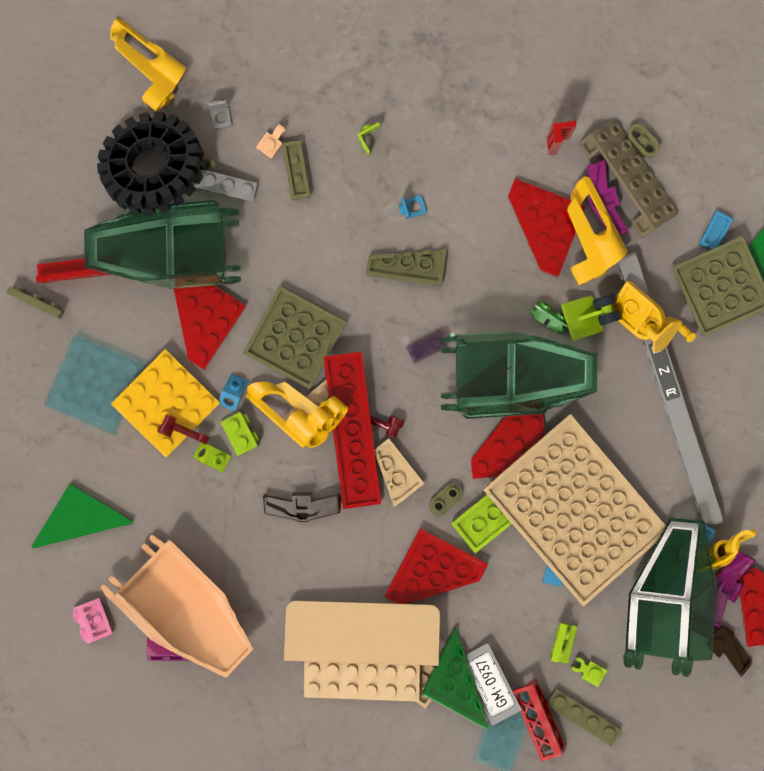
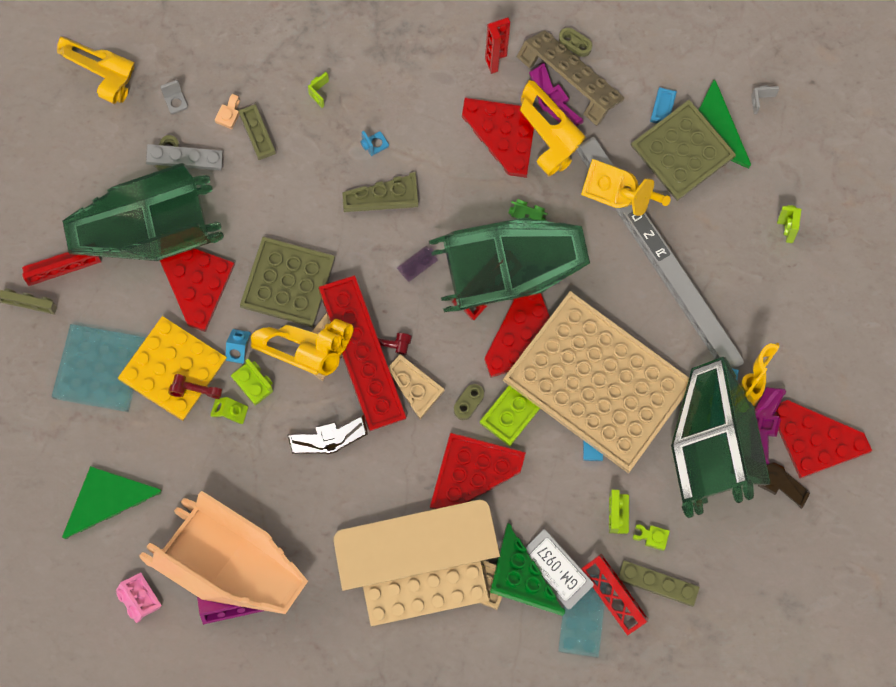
camera: 15 degrees left, 15 degrees down
(162, 187) = (141, 152): black tyre -> none
(584, 318) = (561, 204): lime plate -> none

